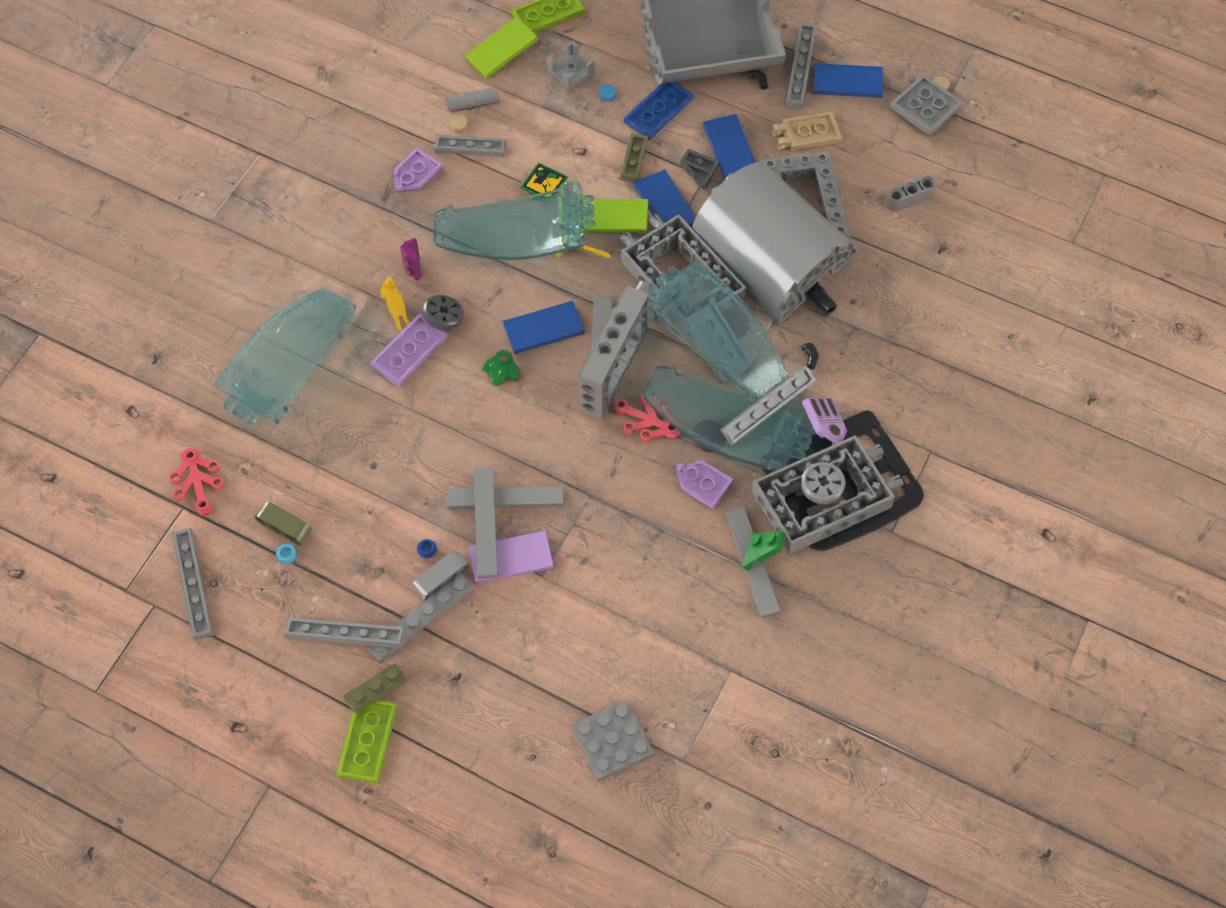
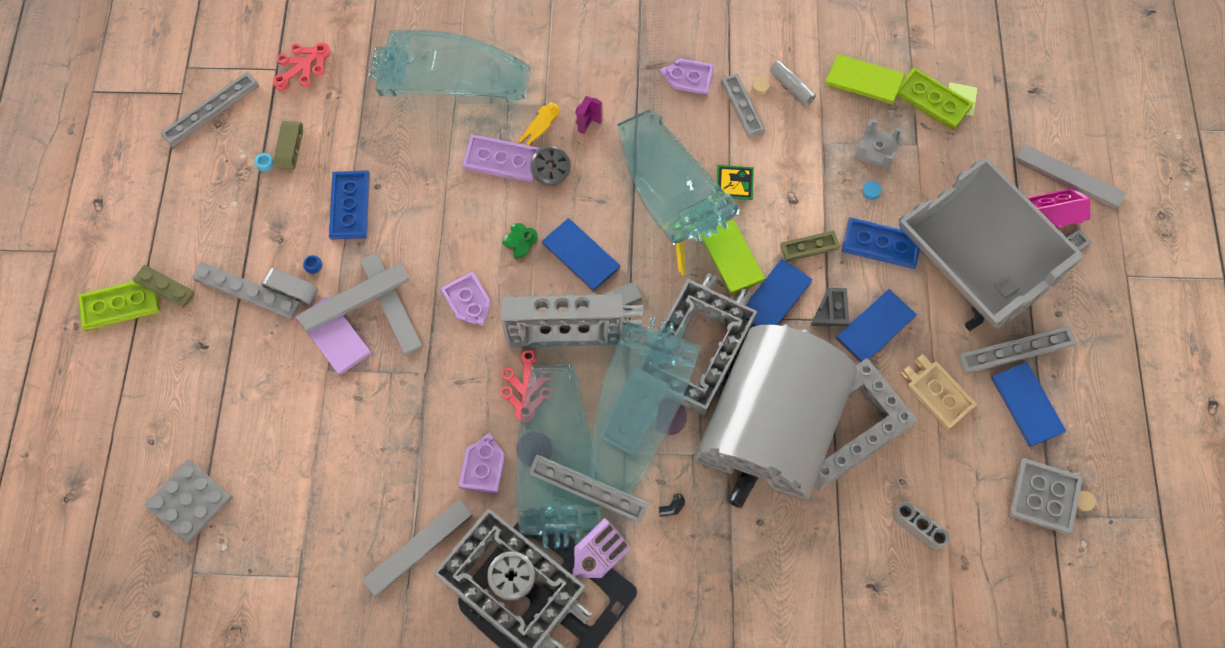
camera: 65 degrees right, 5 degrees up
(345, 632) = (205, 240): light grey tile -> none
(380, 495) = (349, 205): none -> blue tile
(537, 432) = (467, 299): none -> lavender tile
(763, 546) = (426, 549): green wing -> none

